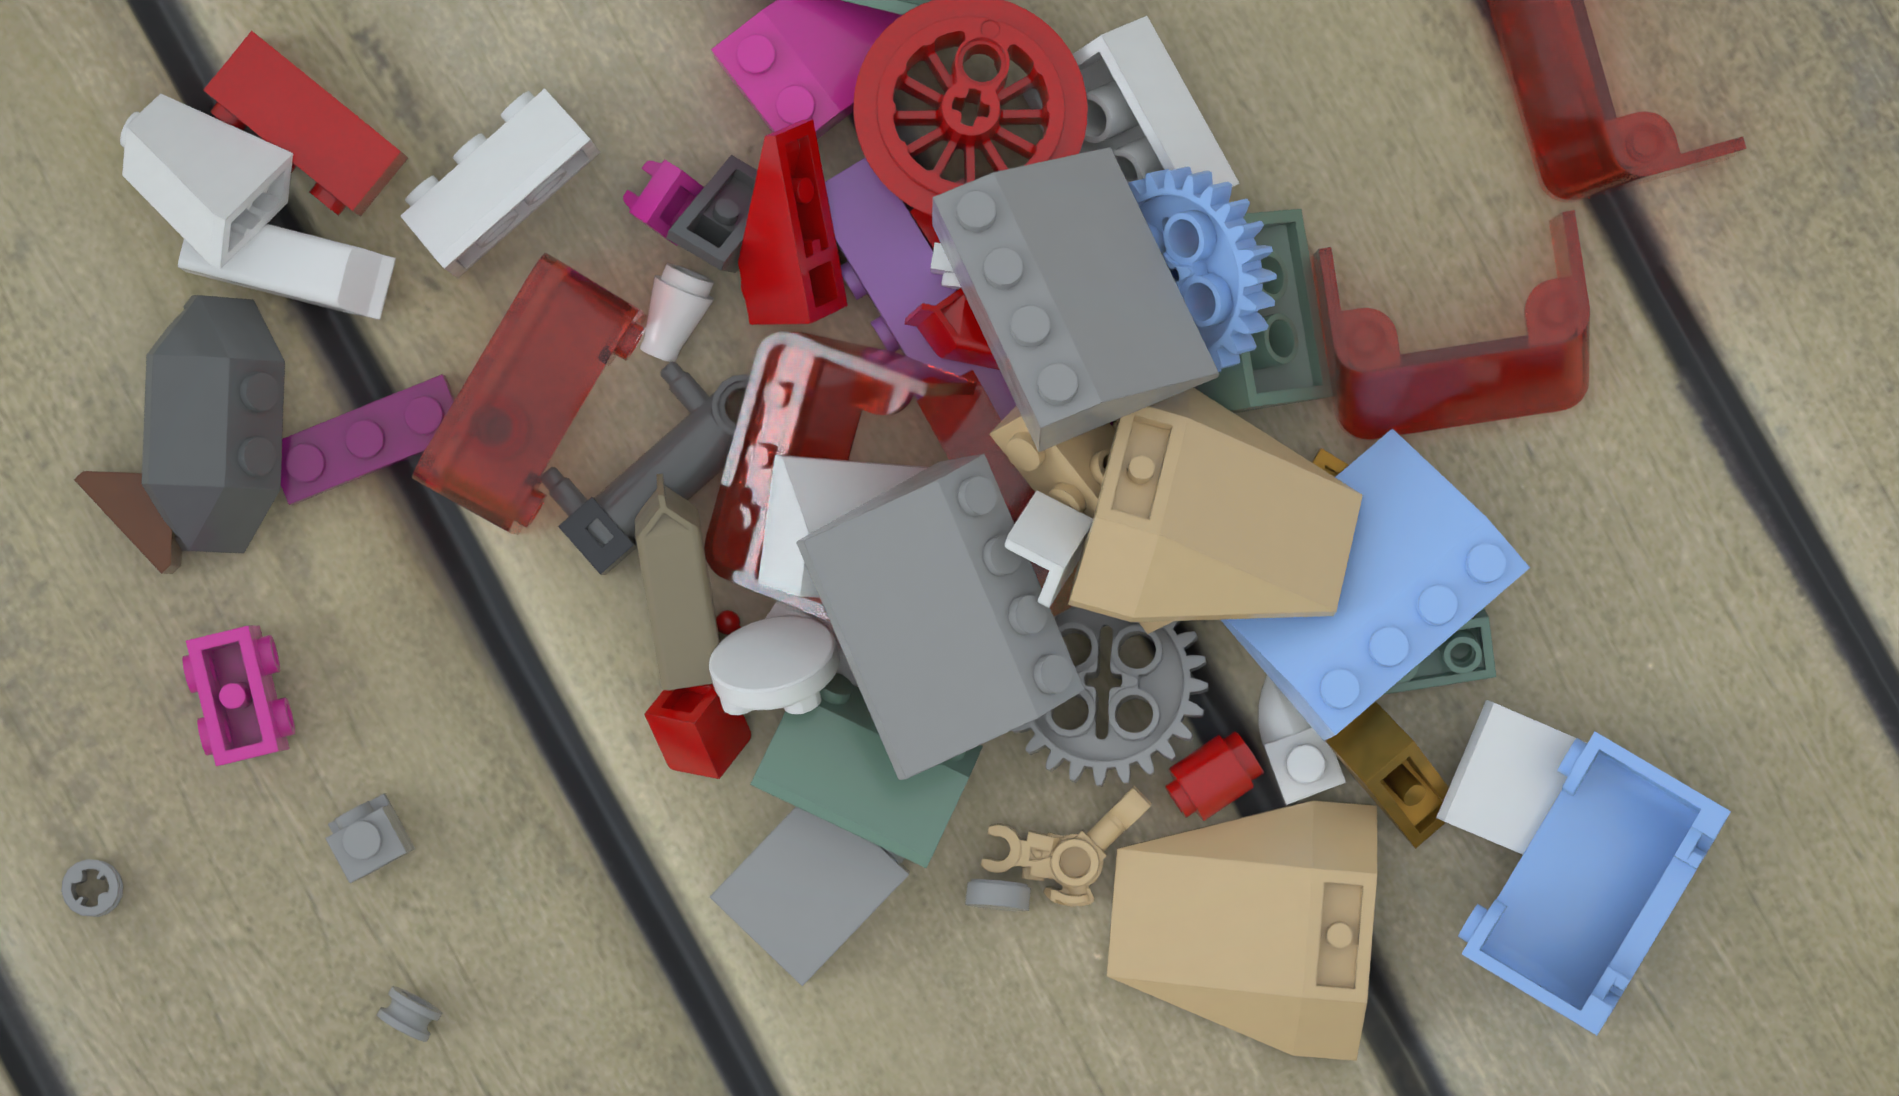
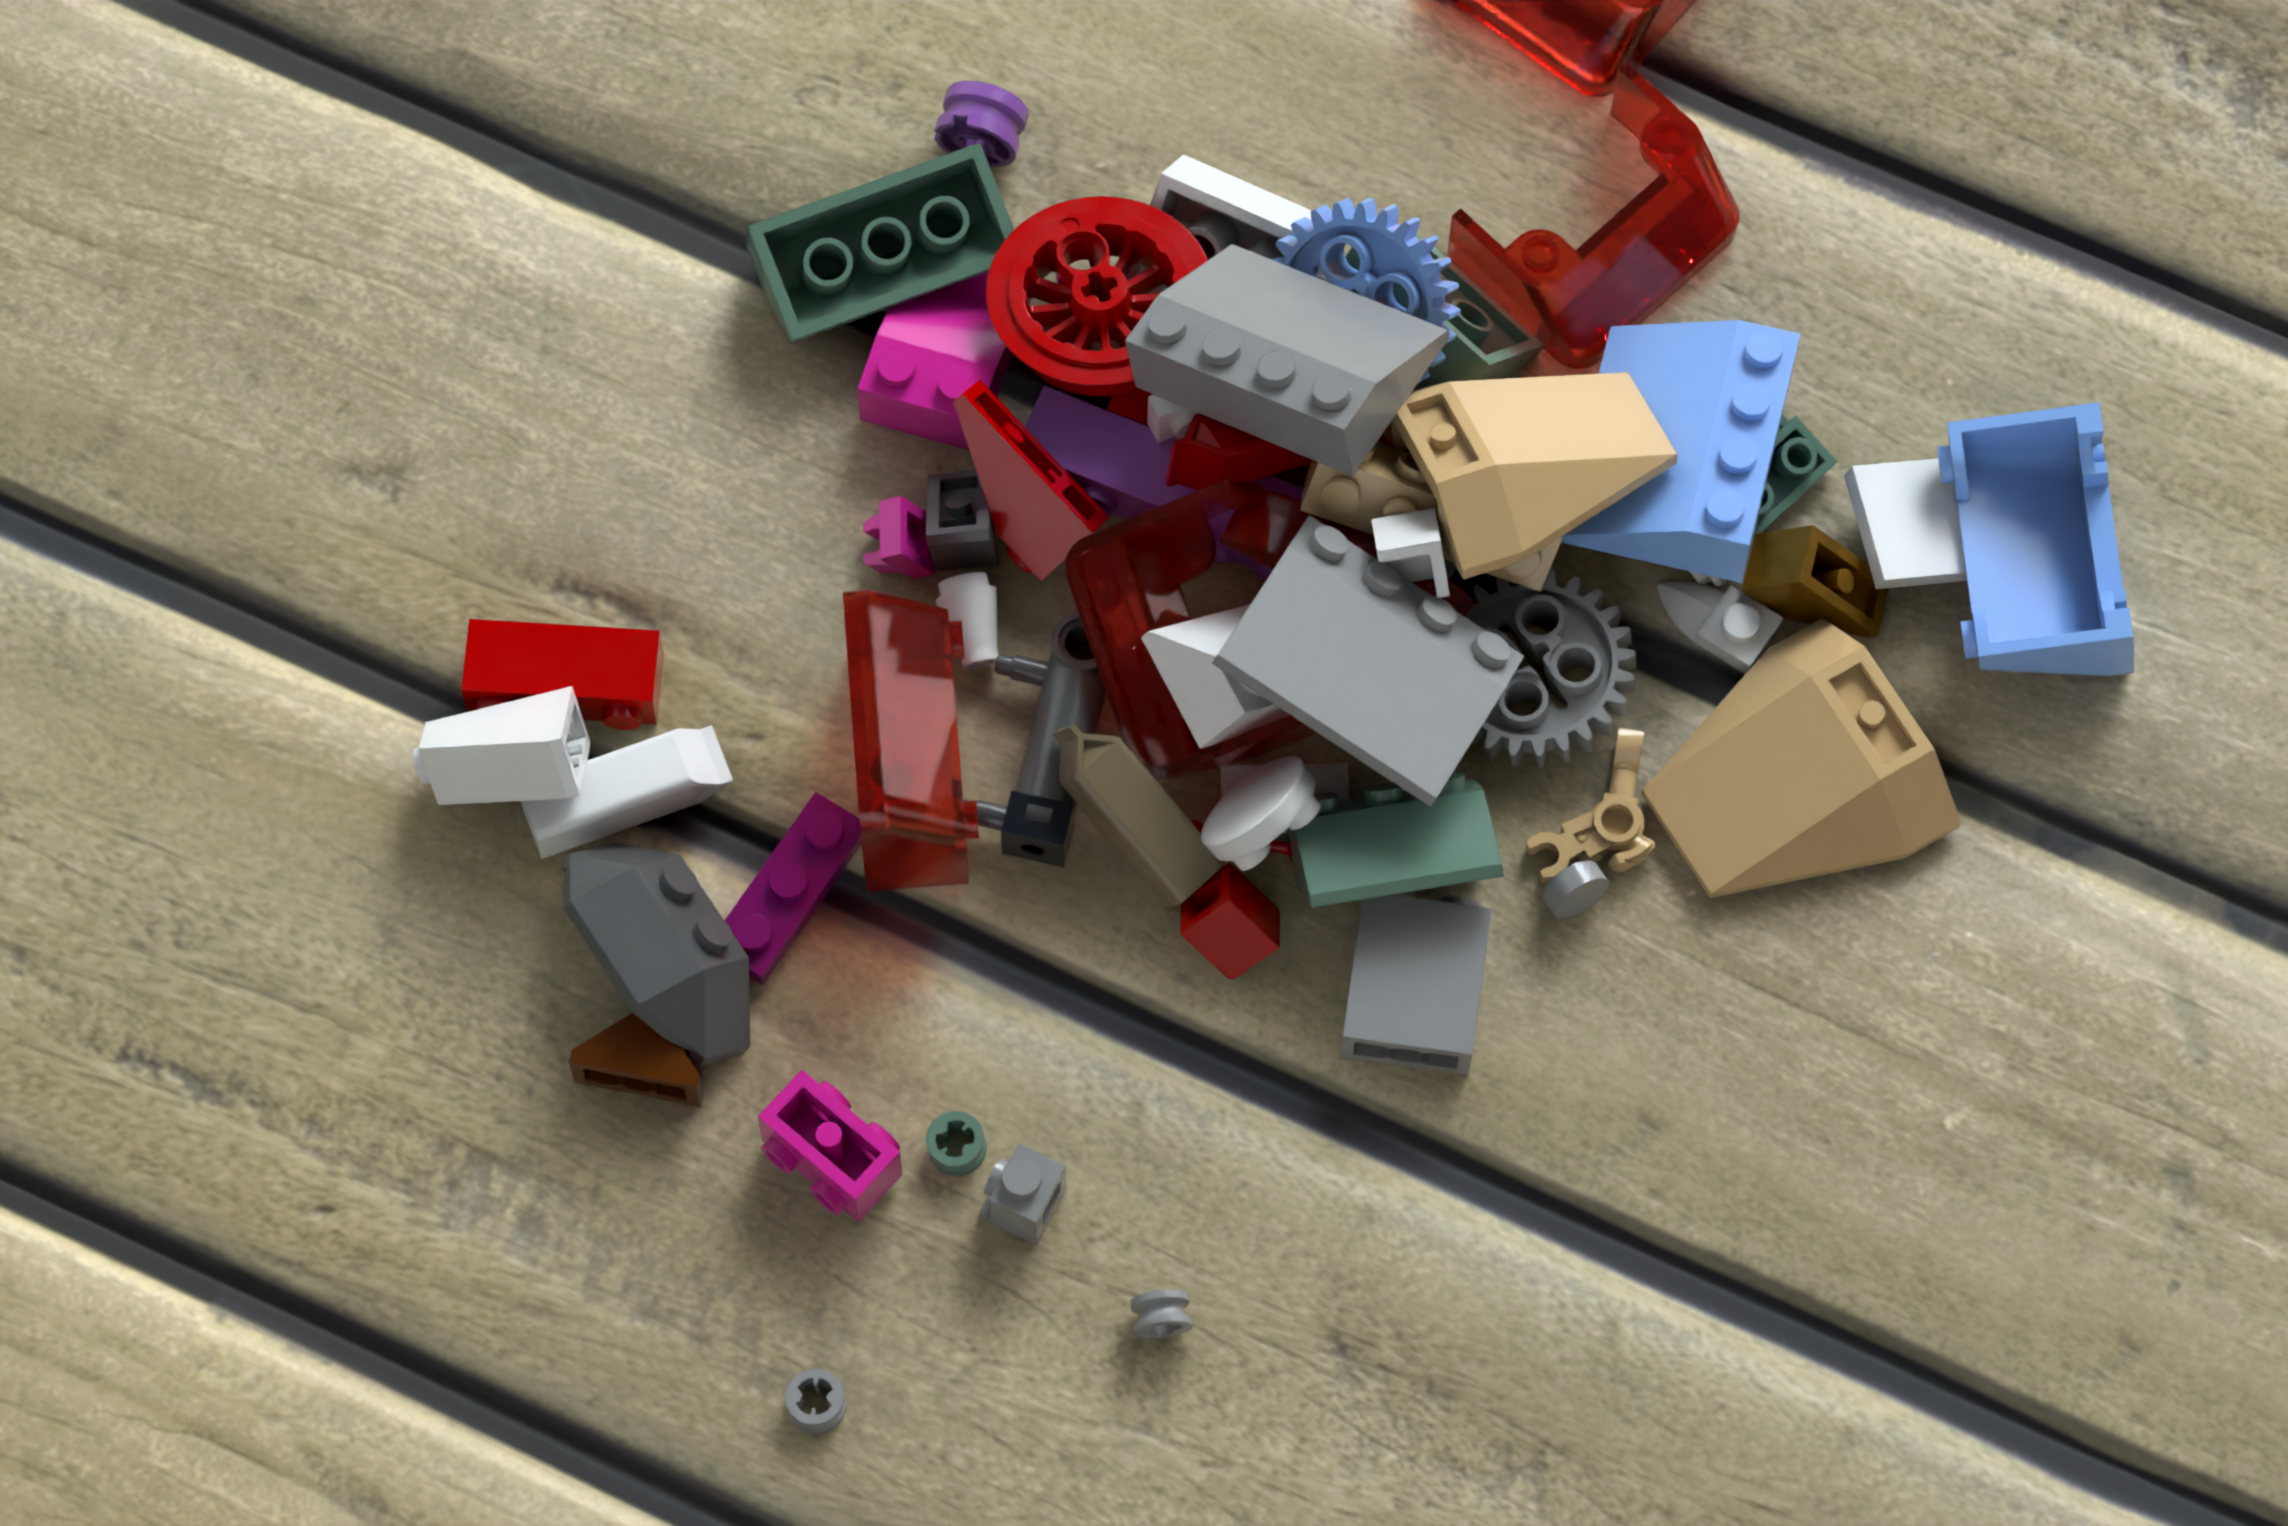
camera: 40 degrees left, 20 degrees down
(353, 772) = (972, 1154): none -> sand green bush
(498, 181) = (756, 607): white slope -> none
(1213, 776) = (1675, 681): red brick -> none

